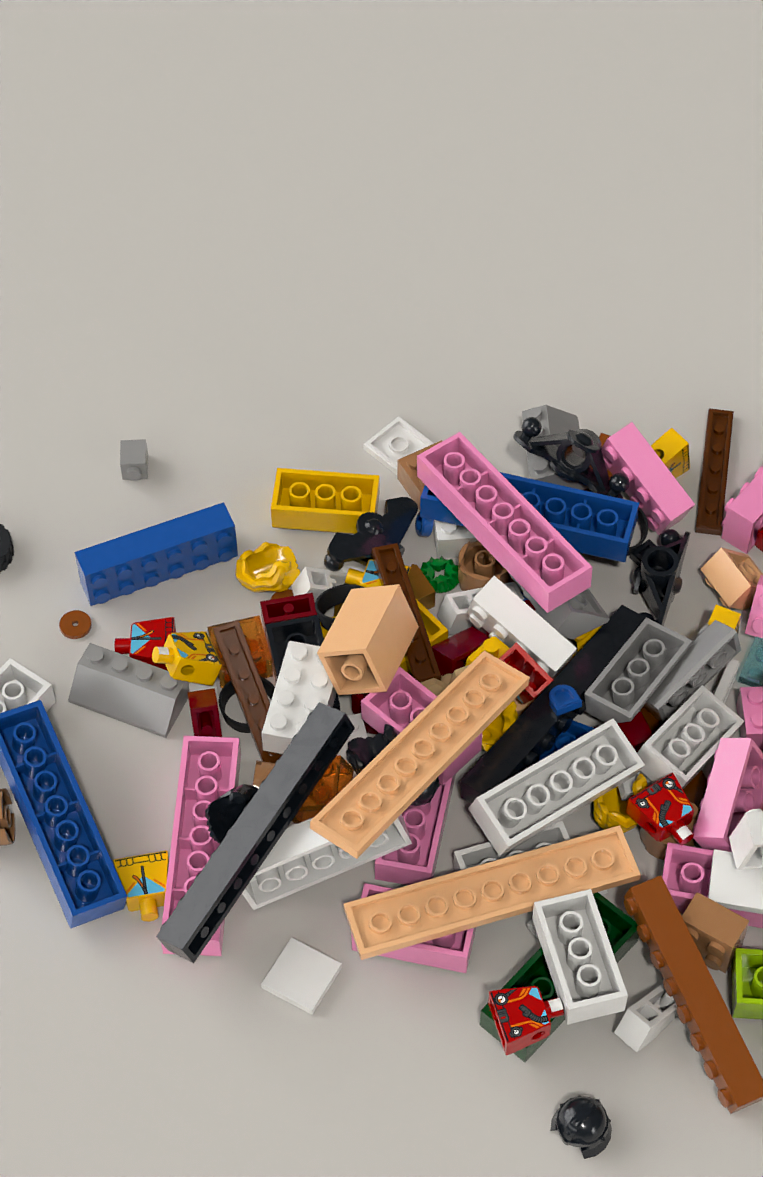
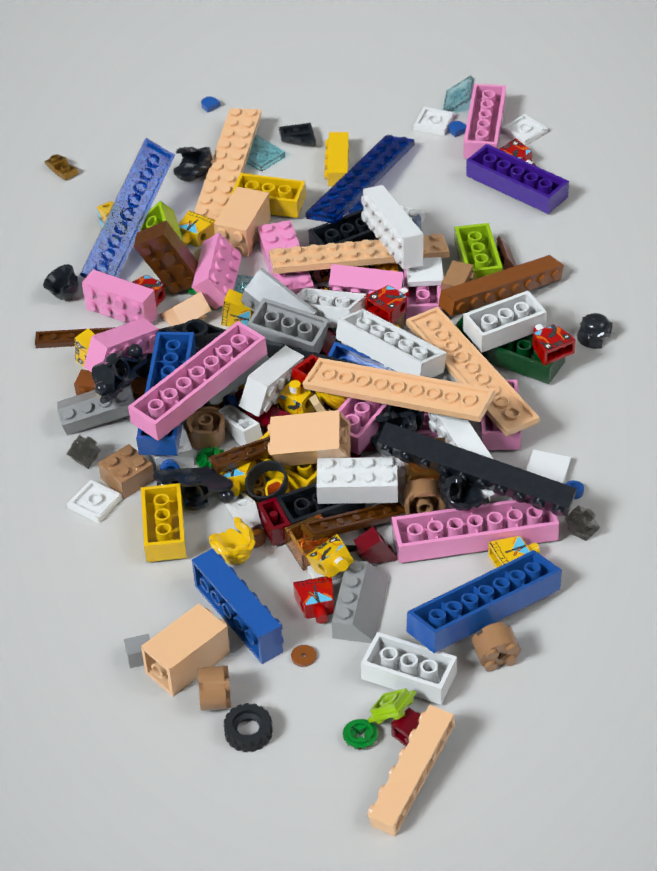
camera: 100 degrees left, 10 degrees down
(40, 514) = (214, 688): none -> medium nougat brick
(106, 491) = (183, 647): none -> light nougat brick
(172, 982) = (582, 523): none -> clear smoke brick
(251, 1000) = (580, 488): none -> blue tile
(479, 433) = (84, 451): none -> clear smoke brick
(564, 699) = (321, 352): blue tile -> none

